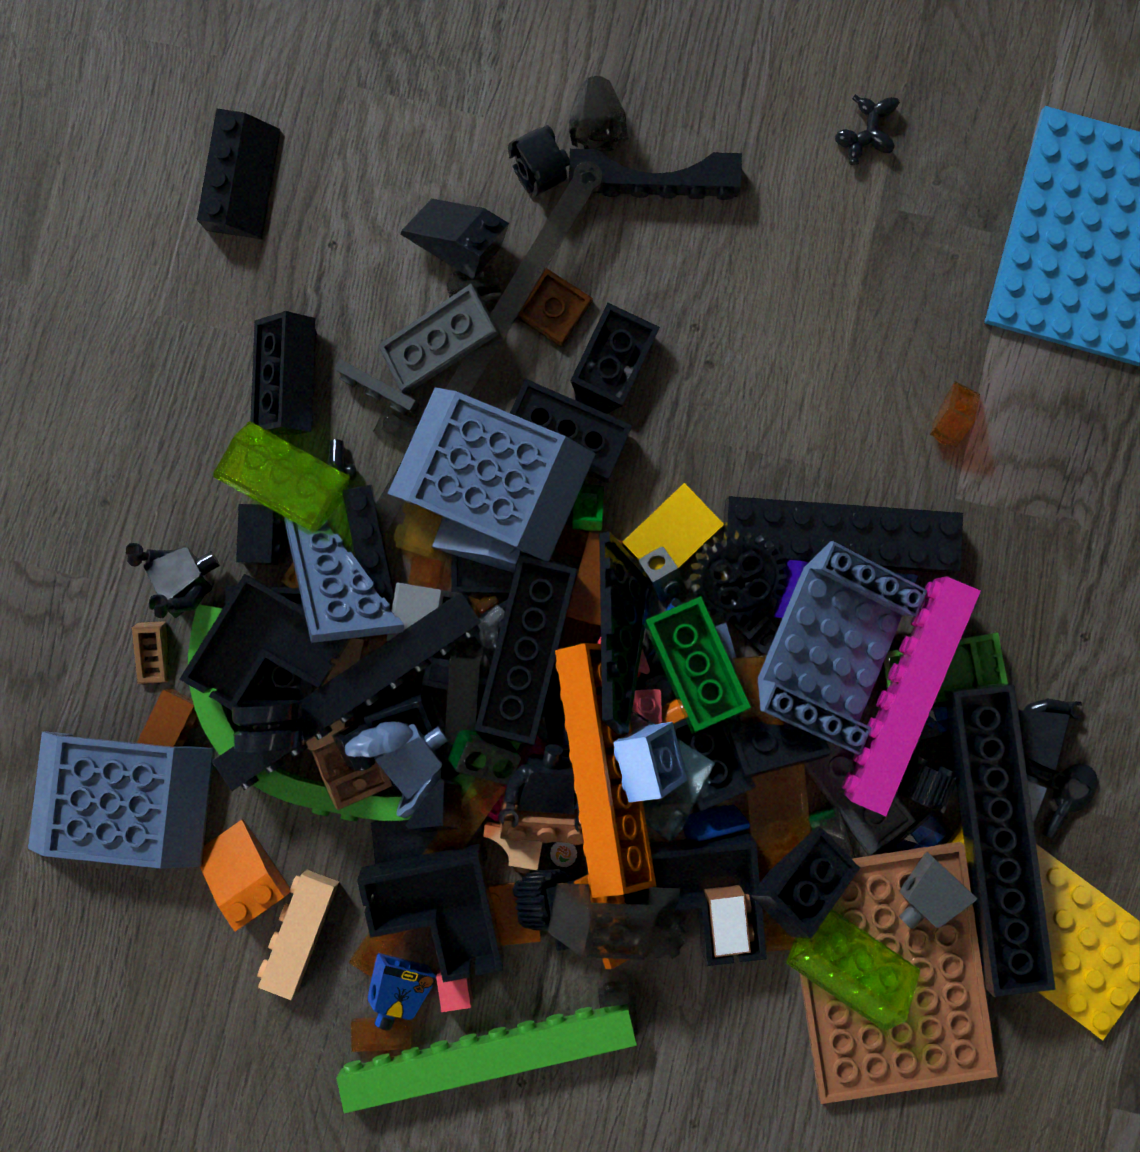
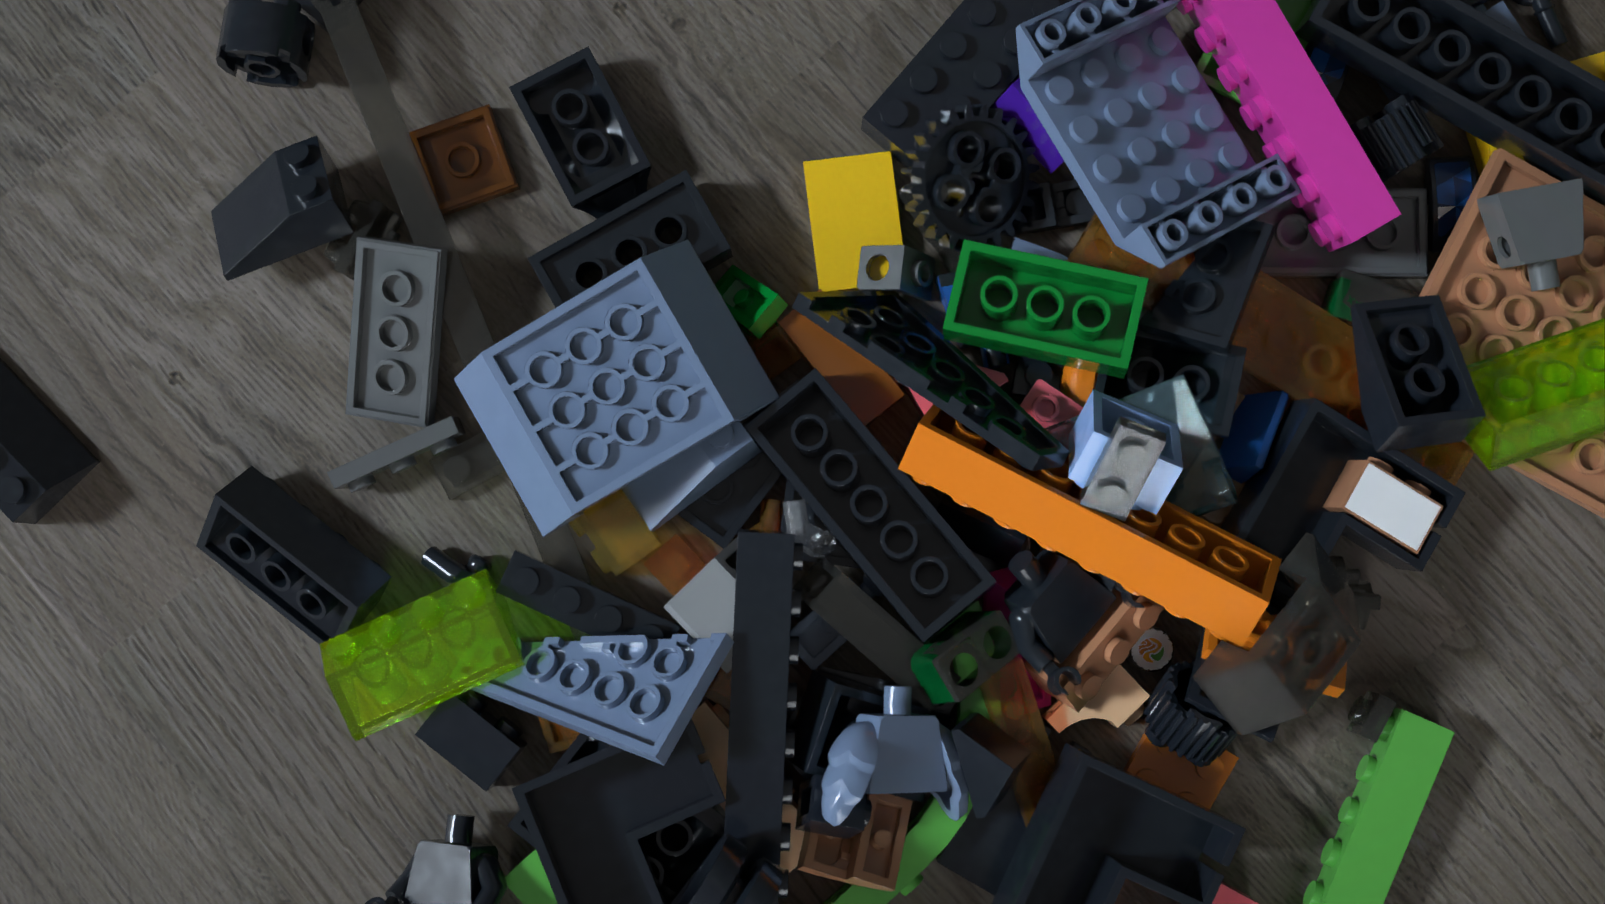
camera: 50 degrees left, 0 degrees up
(637, 766) = (1122, 468): none -> clear smoke plate

